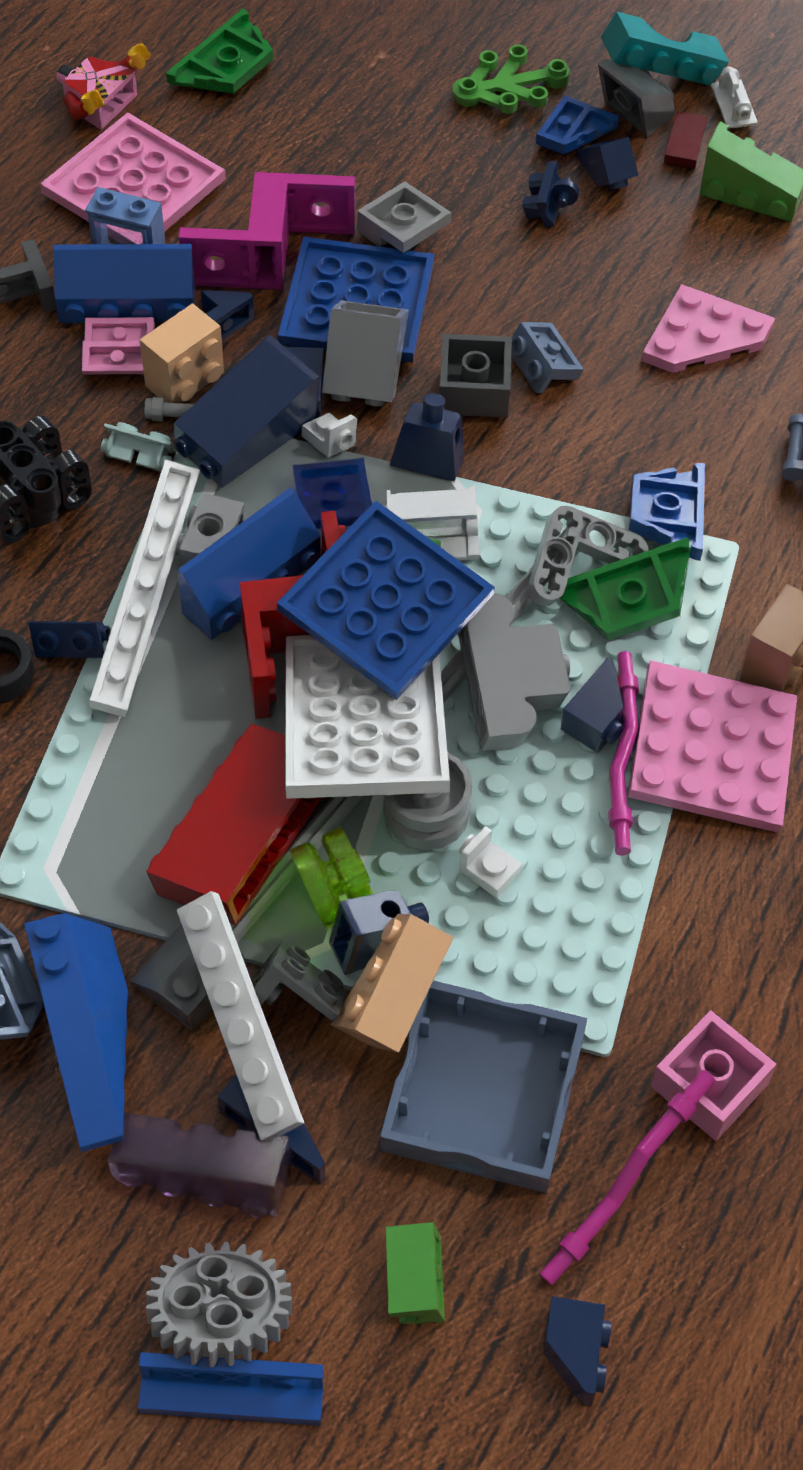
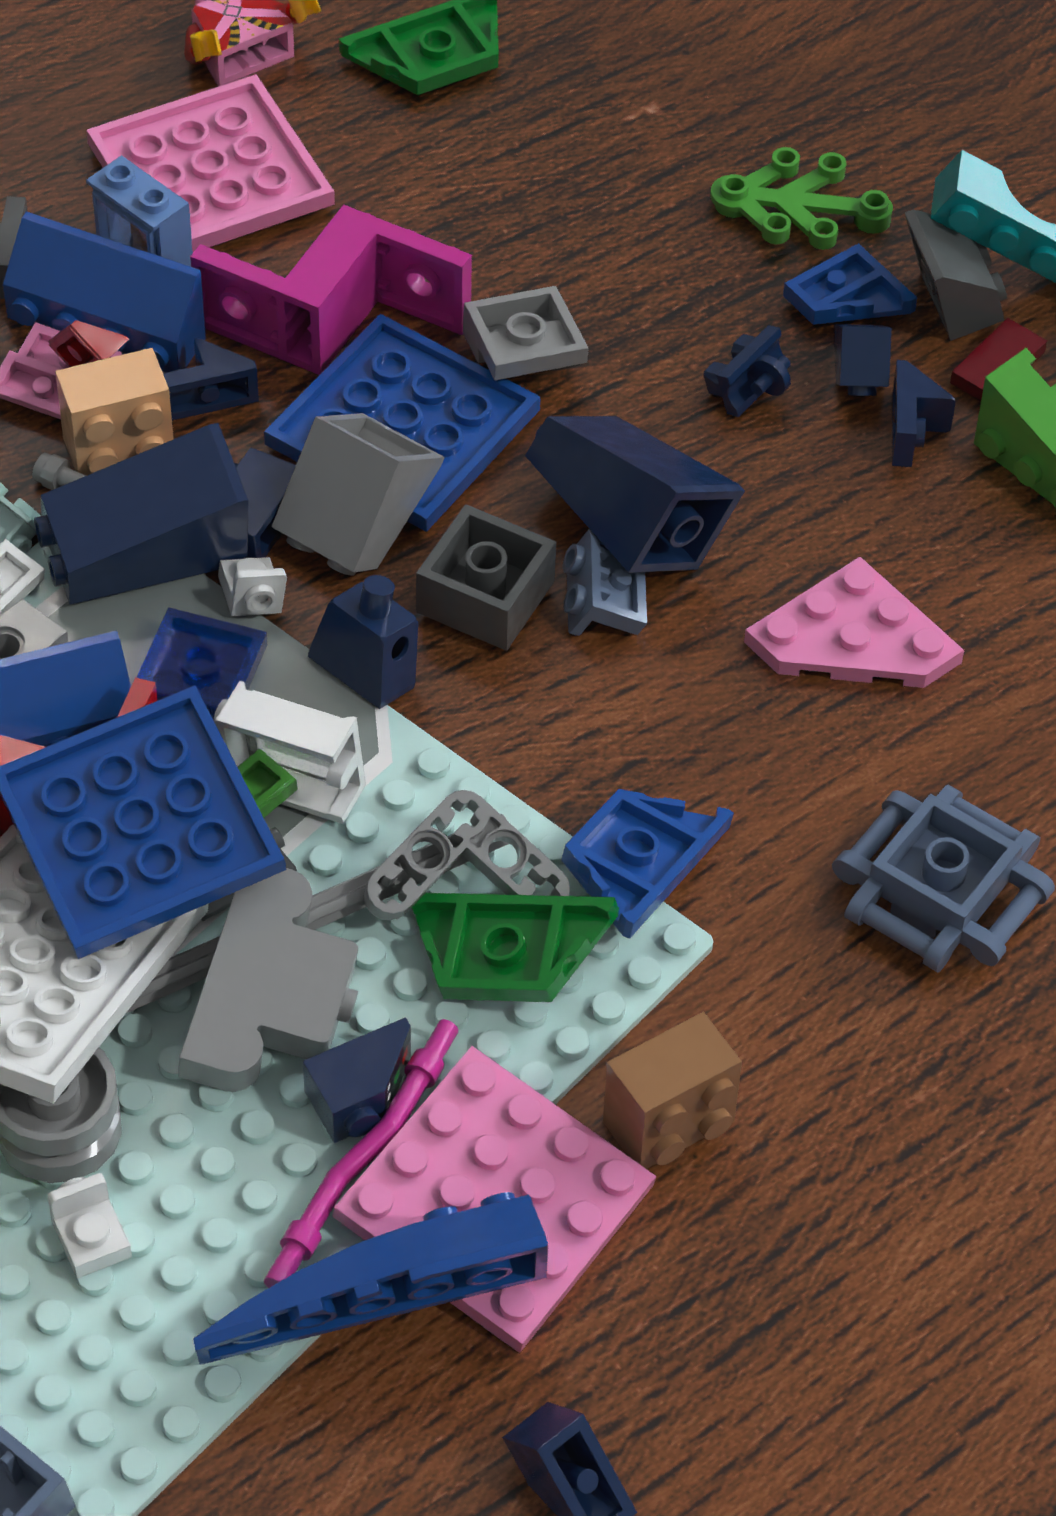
camera: 25 degrees right, 5 degrees down
(141, 319) = (85, 343): none -> red slope
(534, 289) = (634, 491): none -> dark blue slope
(659, 185) = (916, 408): none -> dark blue slope
(703, 808) = (390, 1275): none -> blue wedge

